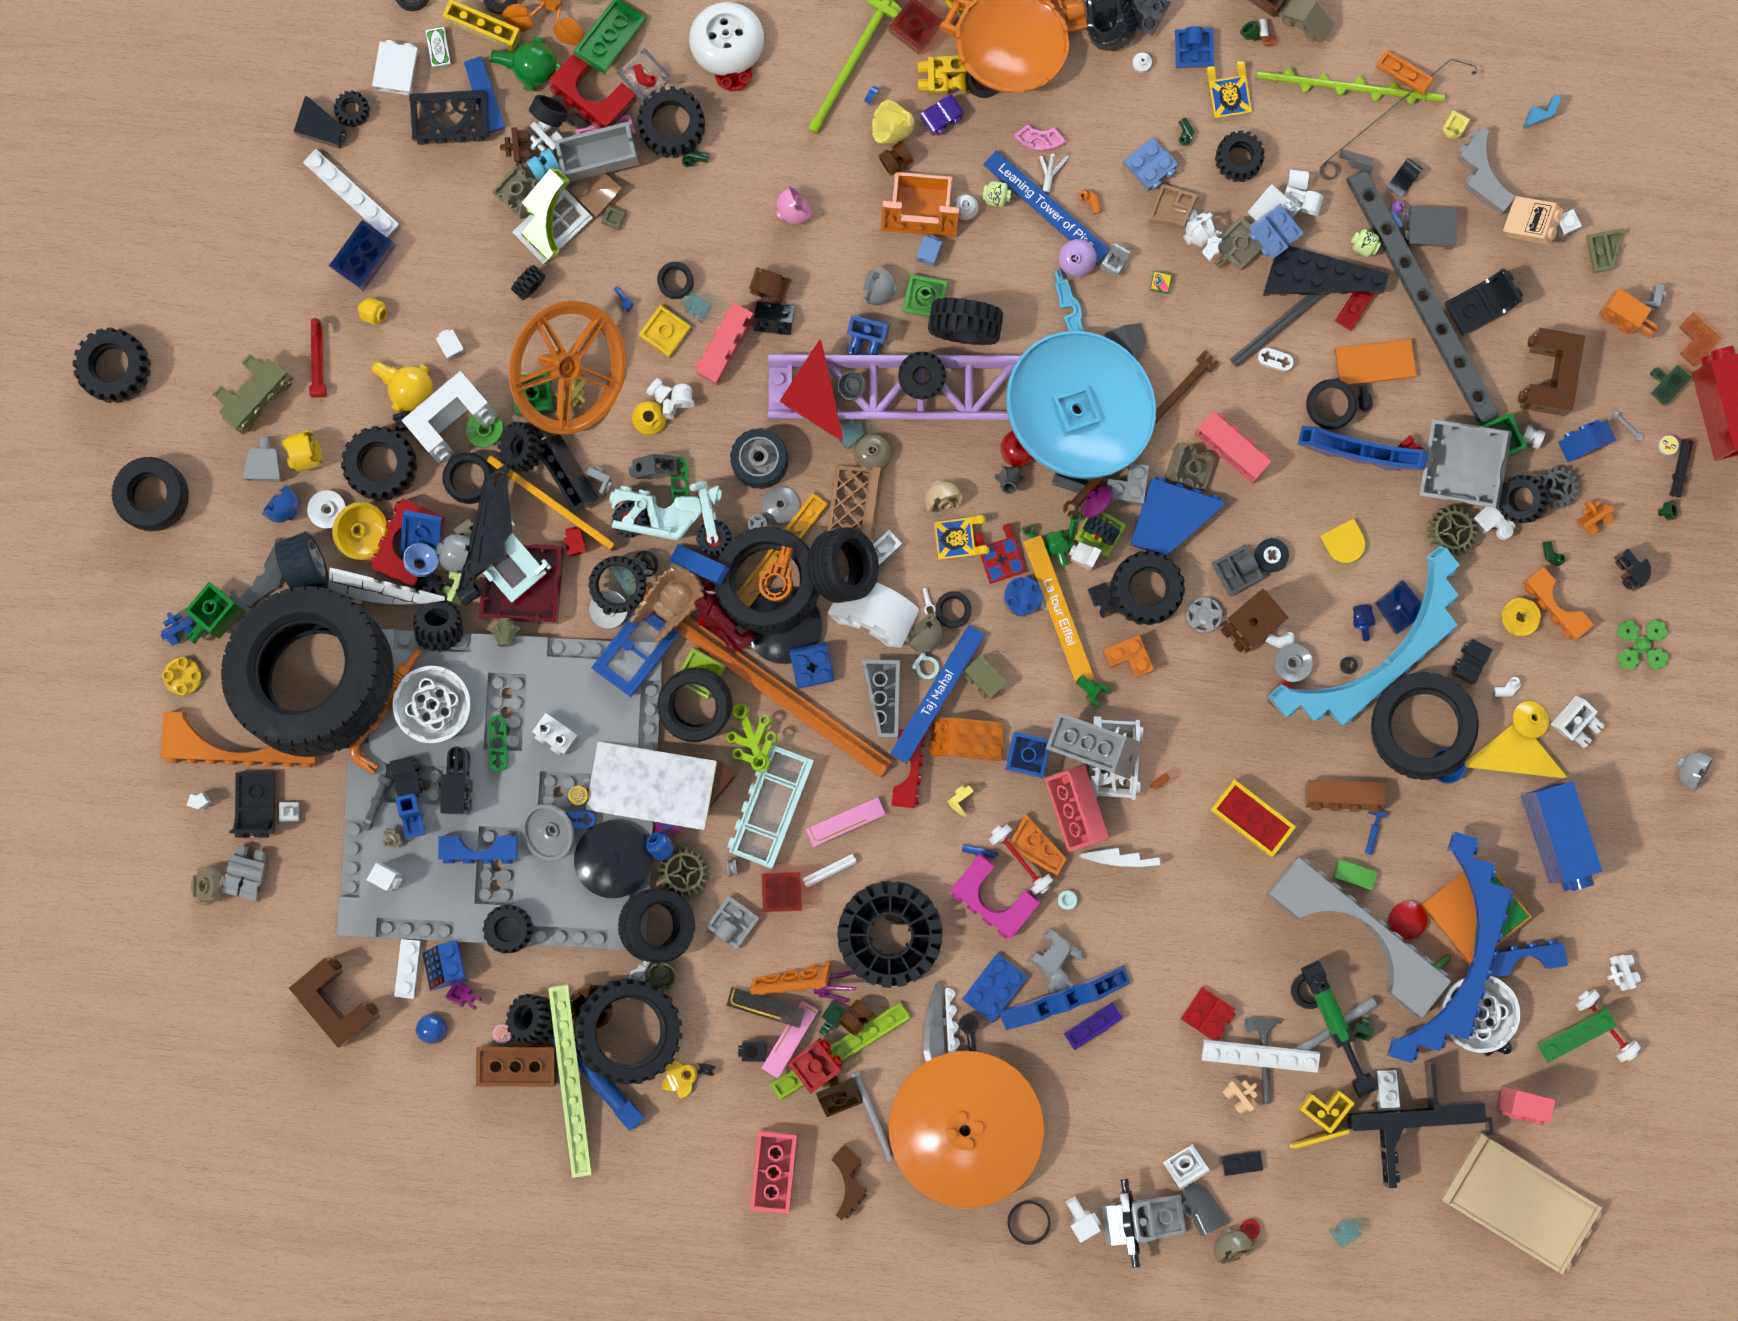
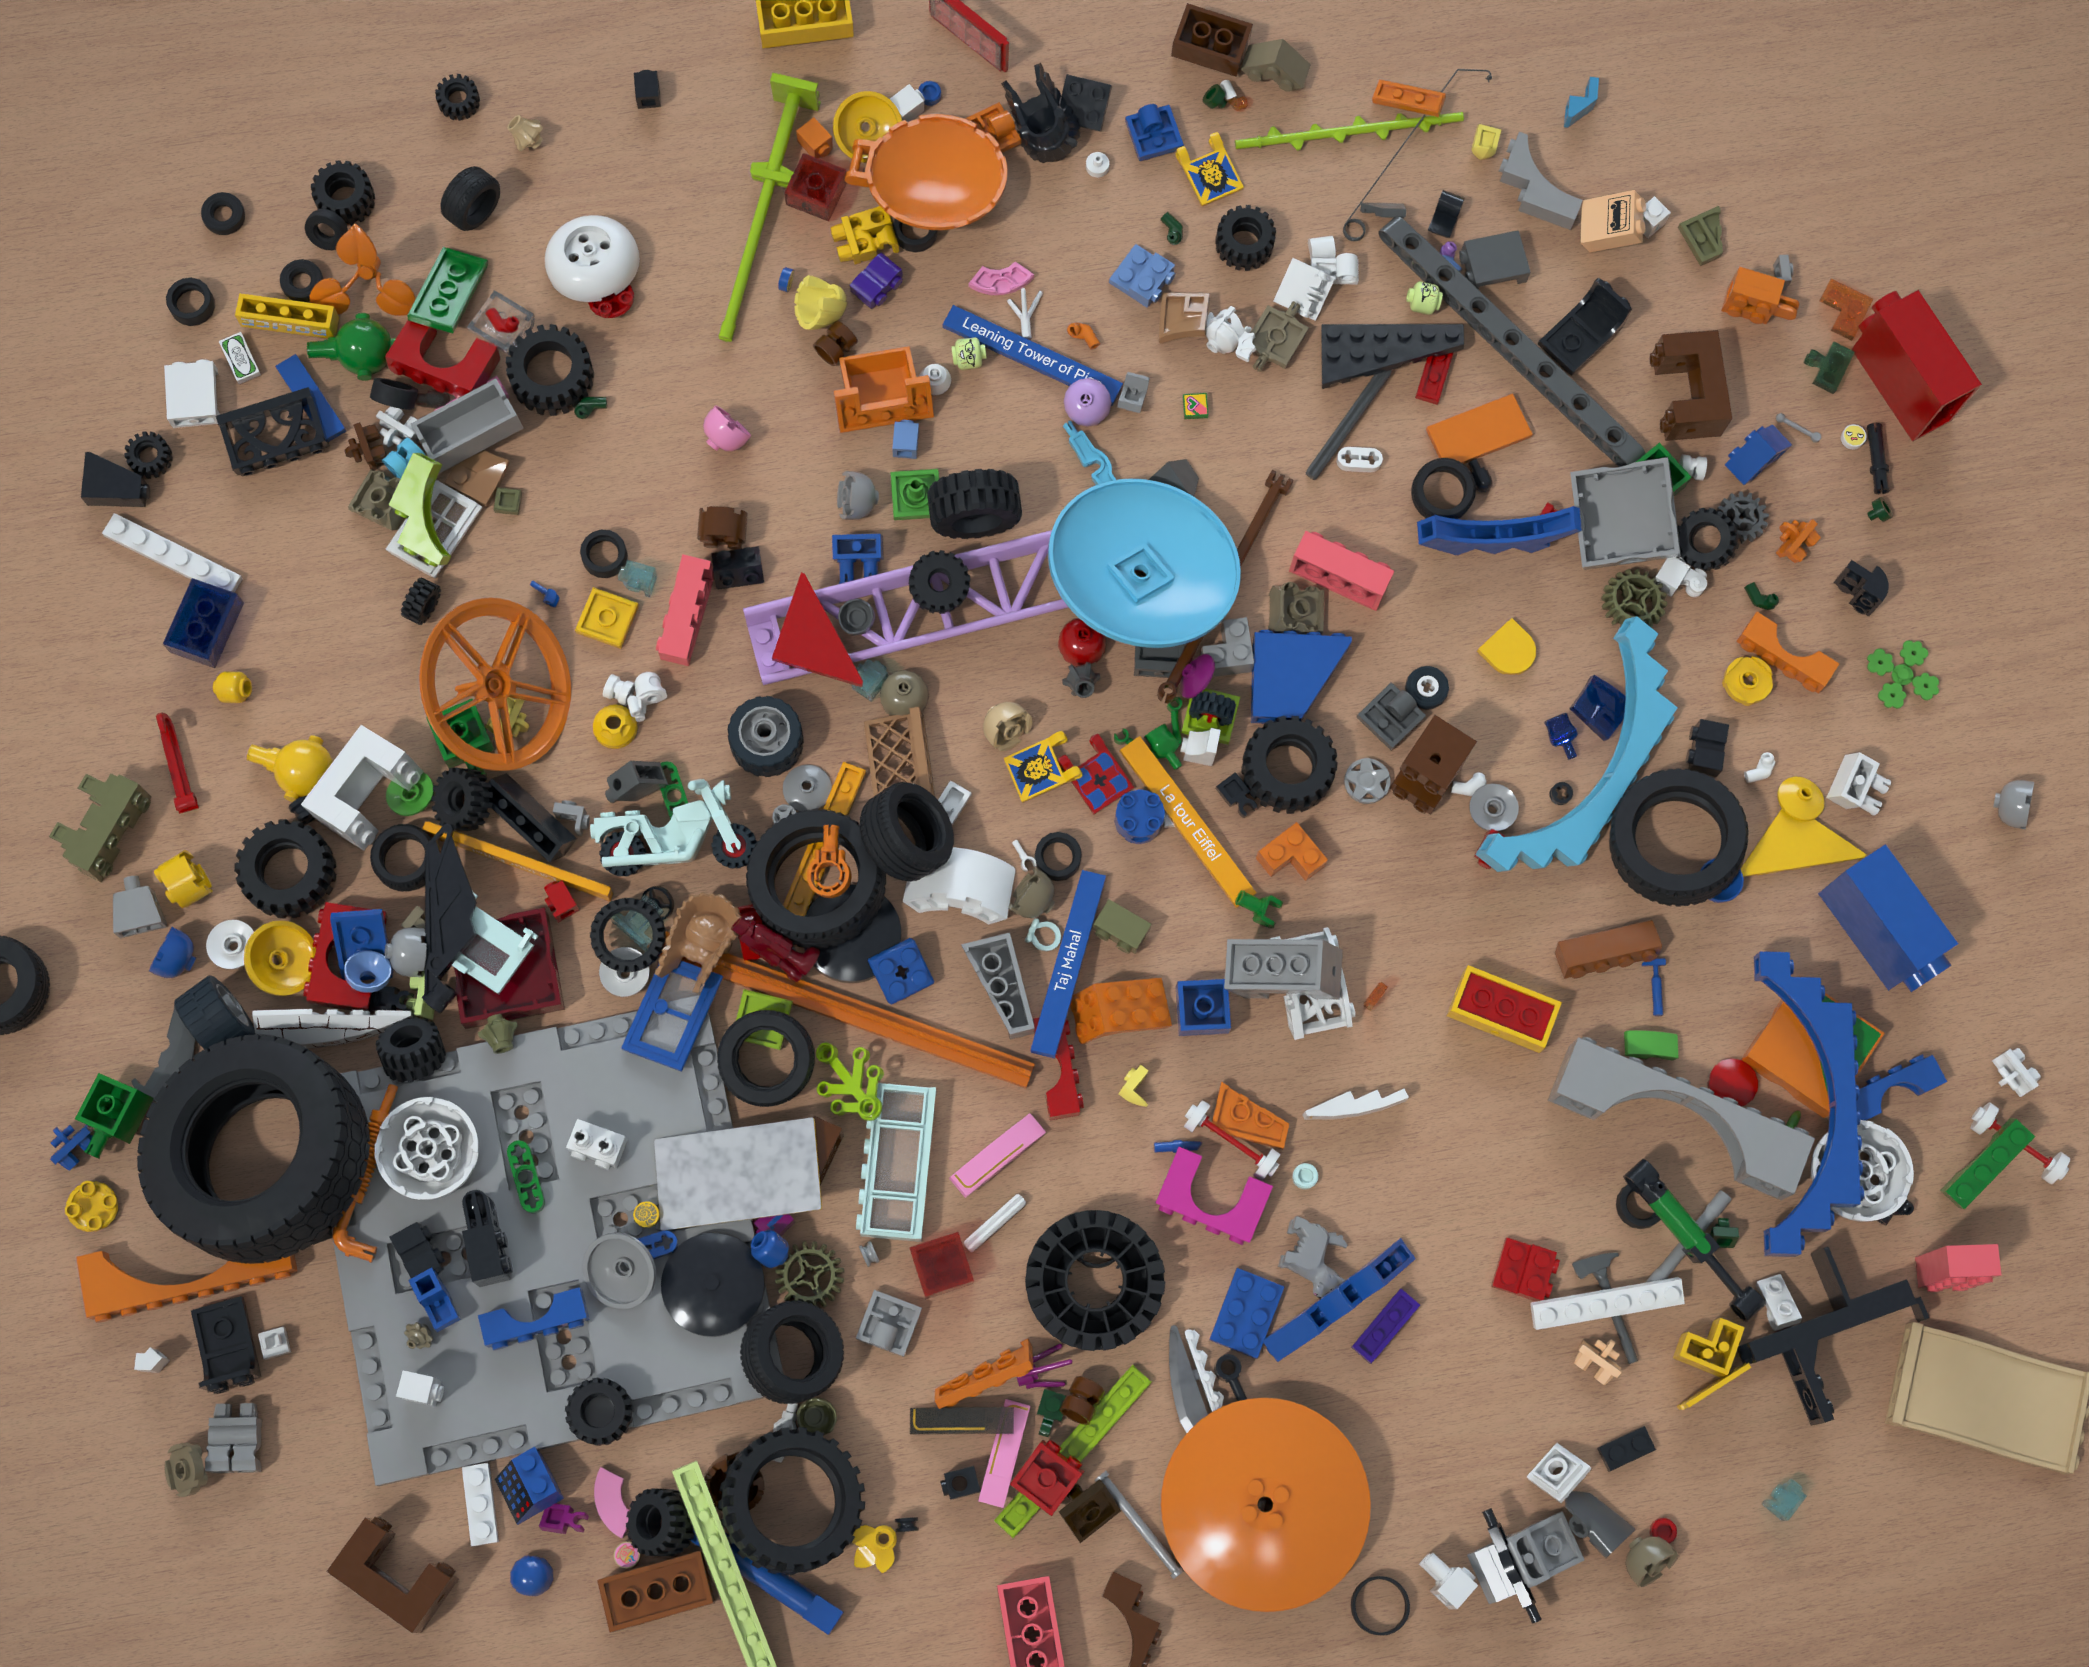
camera: 25 degrees left, 10 degrees down
(376, 801) = (389, 1266): dark grey piece -> none
(450, 344) = (341, 702): white brick -> none
(499, 993) = (609, 1501): none -> bright pink tile
(699, 564) = (725, 882): blue tile -> none
(1076, 808) = (1283, 1055): coral brick -> none
(1275, 231) = (1314, 308): medium blue plate -> none

